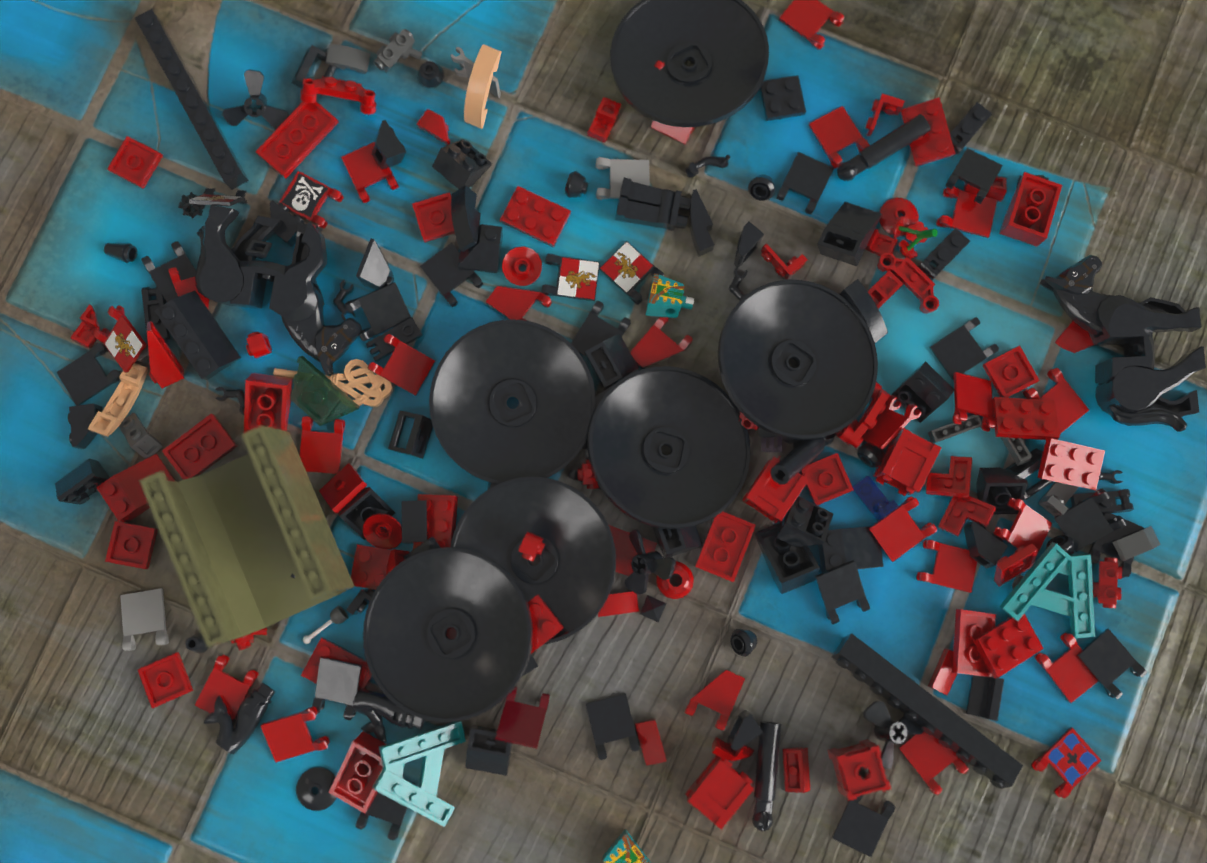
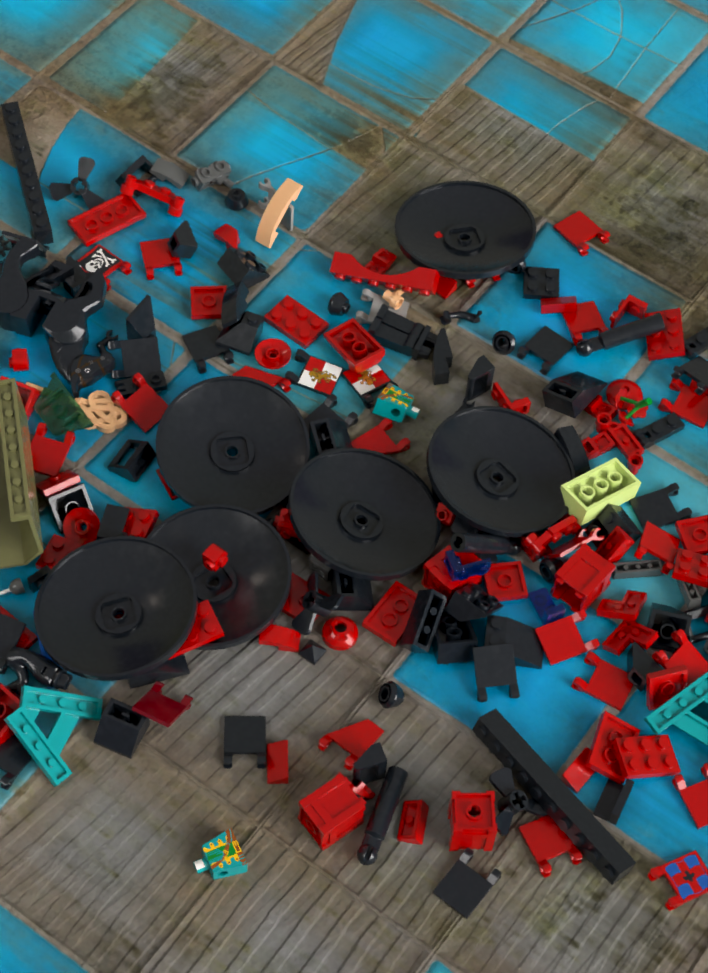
camera: 10 degrees right, 25 degrees down
(576, 135) = (419, 280): none -> red arch
(605, 234) = (355, 345): none -> red slope
(631, 161) = (394, 298): none -> light nougat brick
(758, 555) = (423, 621): none -> black brick
(779, 495) = (461, 572): none -> clear blue bracket
(807, 121) = (558, 304): none -> red slope
(902, 352) = (597, 489): none -> yellowish green slope
(932, 412) = (615, 545): none -> red slope

